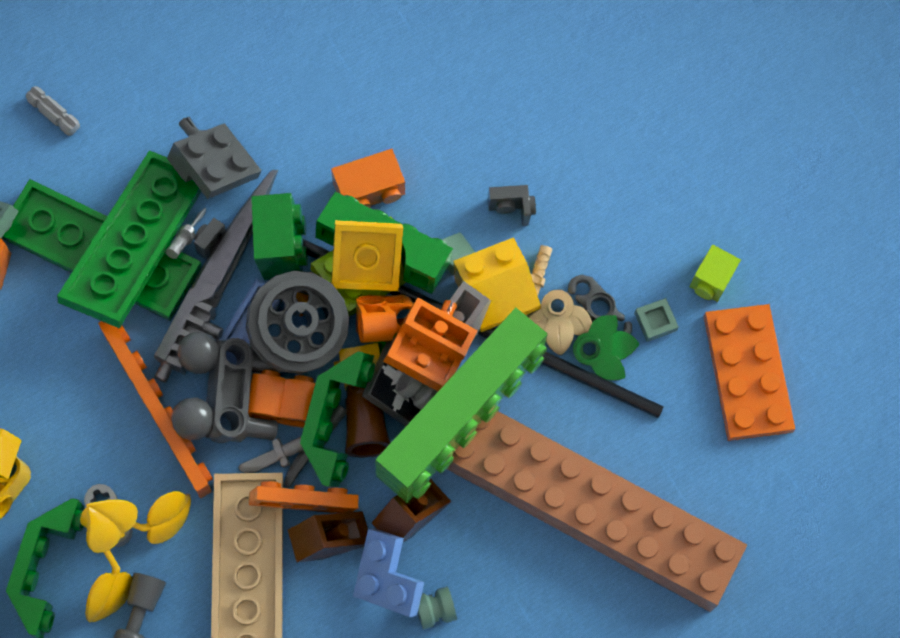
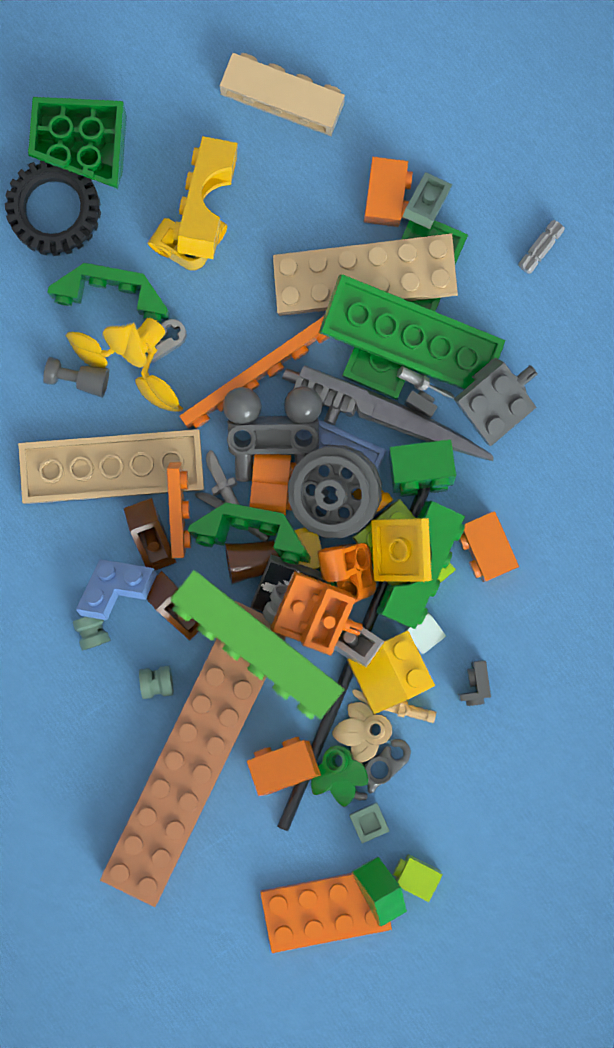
camera: 90 degrees right, 15 degrees up
(57, 337) = (403, 268): none -> tan plate
(496, 537) = (156, 682): none -> sand green wheel
(595, 402) = (283, 767): none -> orange brick
(728, 308) = (380, 891): none -> green slope

